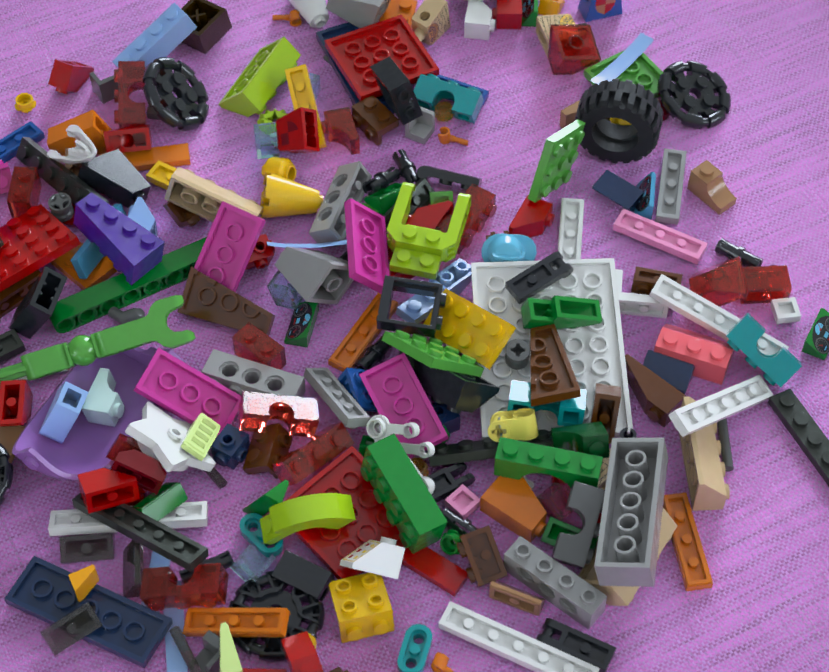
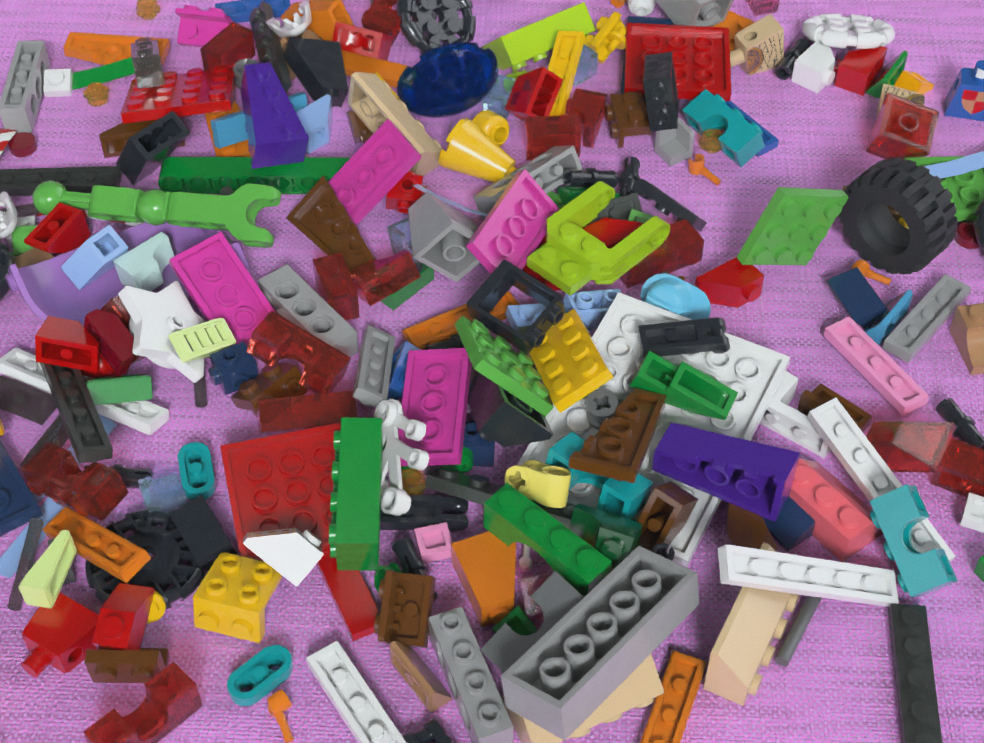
camera: 30 degrees right, 5 degrees down
(221, 128) = (448, 80): none -> clear blue brick
(269, 499) = (222, 433): green slope -> none
(292, 325) = (384, 276): none -> clear red arch
(306, 512) = (246, 464): lime arch -> none
(317, 55) = (609, 36): none -> yellow hips
(326, 158) = (551, 131): none -> clear red brick
(456, 11) = (786, 66): none -> black pin
(571, 228) = (774, 313): white tile -> none
(608, 166) = (864, 267): none -> orange hand
(627, 356) = (728, 467): none -> dark purple wedge

